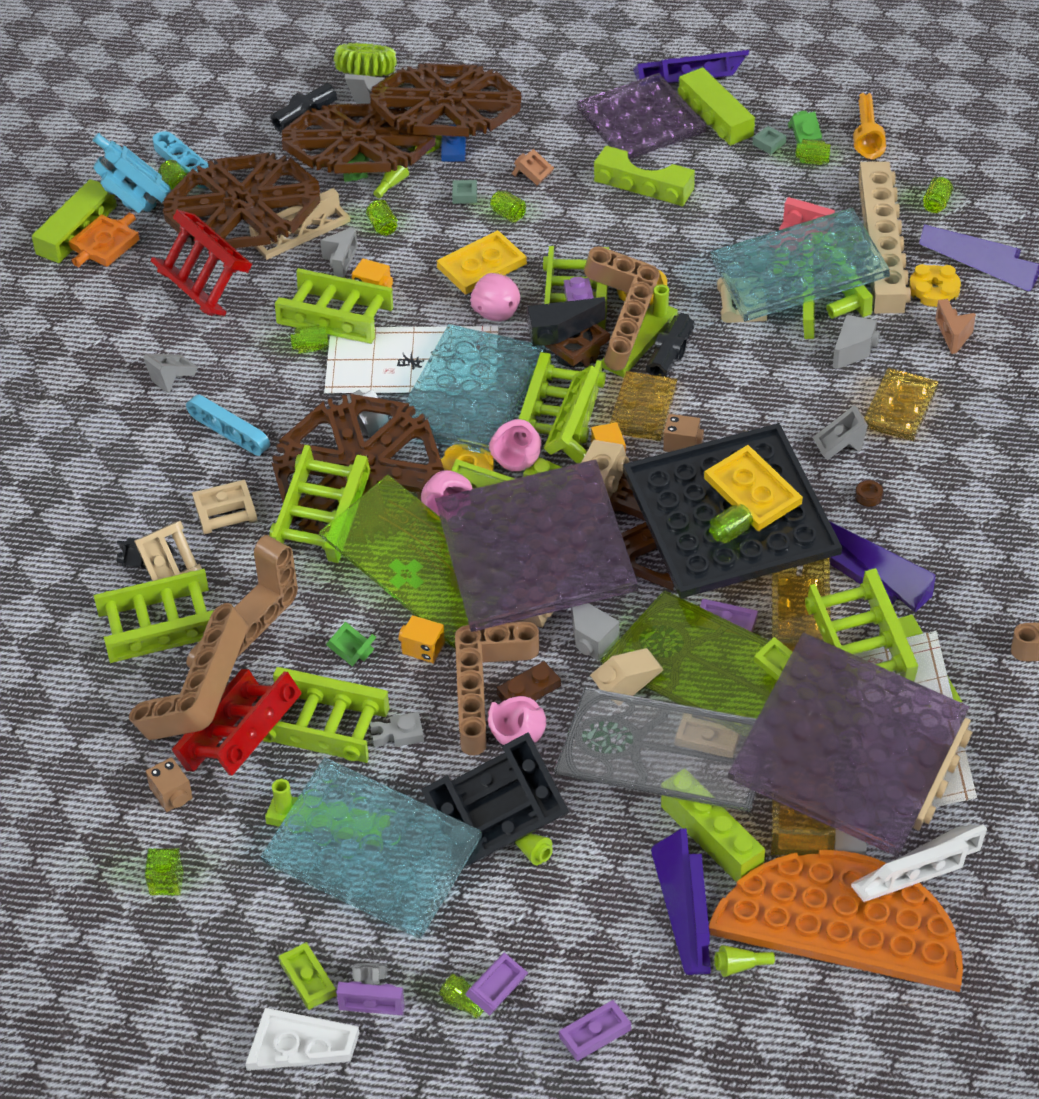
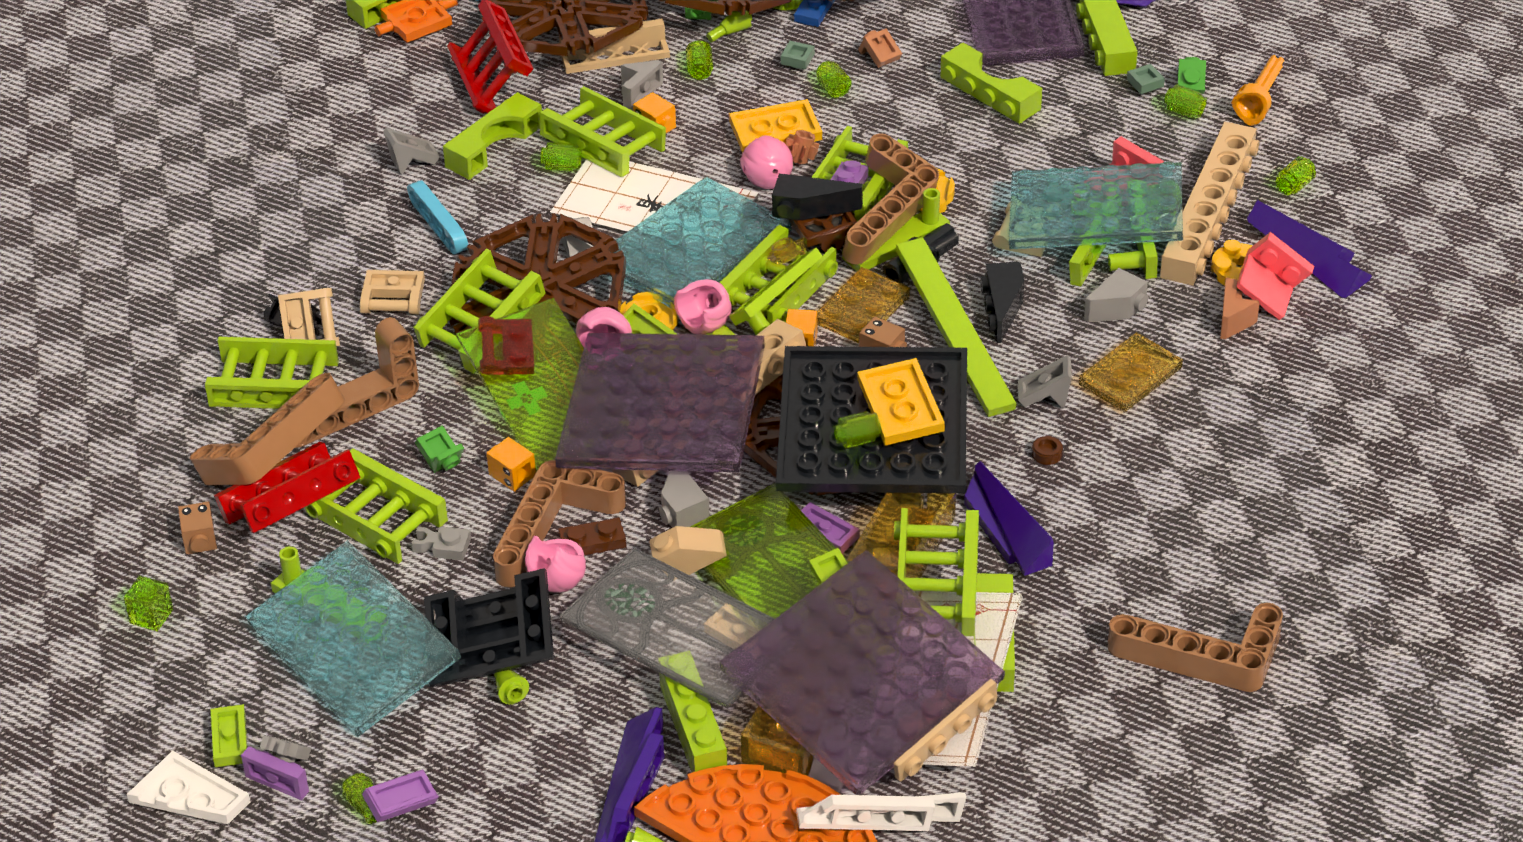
camera: 20 degrees right, 5 degrees down
(246, 314) = (511, 119): none -> lime arch
(377, 527) = (516, 344): none -> clear red plate
(518, 273) = (802, 146): none -> nougat gear
(562, 373) = (786, 250): none -> clear yellow animal
(728, 394) = (955, 326): none -> lime tile
(758, 360) = (1004, 295): none -> black slope
(969, 284) = (1272, 273): none -> coral bracket

